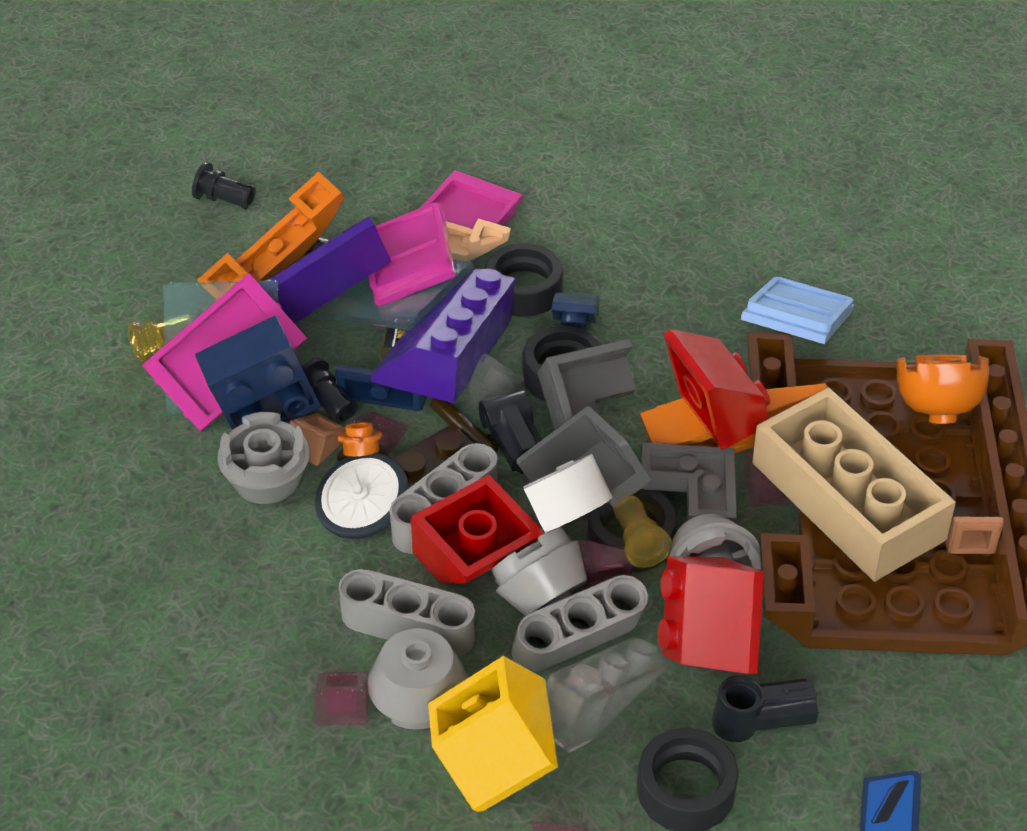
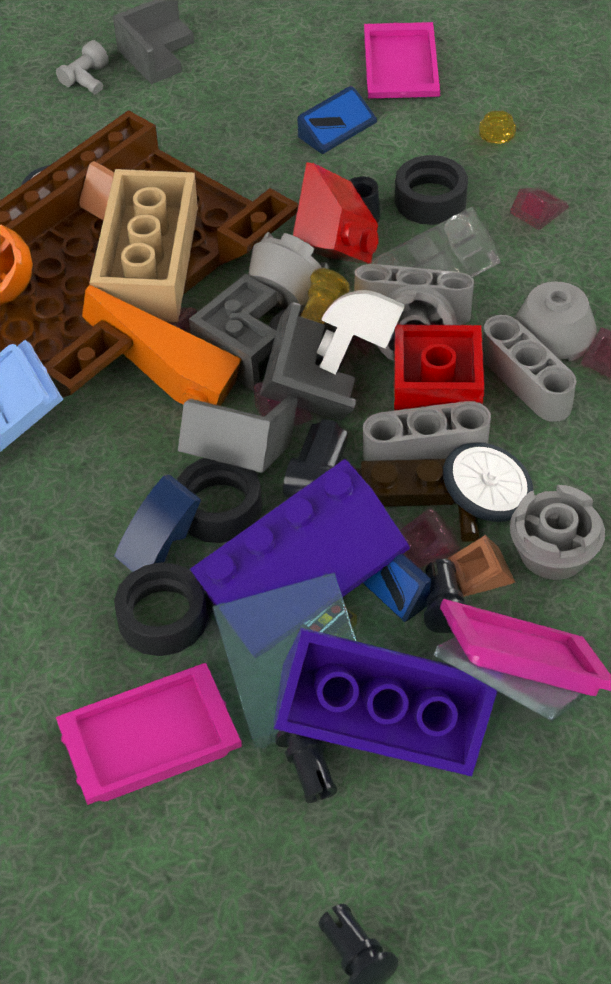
camera: 140 degrees left, 5 degrees up
(145, 339) = (560, 761): clear yellow pin -> none
(257, 374) = (522, 585): dark blue slope -> none
(286, 241) = (368, 798): orange slope -> none
(360, 439) = (470, 509): orange plate -> none
(417, 252) = (237, 683): dark pink piece -> none
(471, 243) = (179, 677): light nougat slope -> none
(494, 732) = (533, 245): yellow slope -> none
(716, 387) = (169, 319): red slope -> none

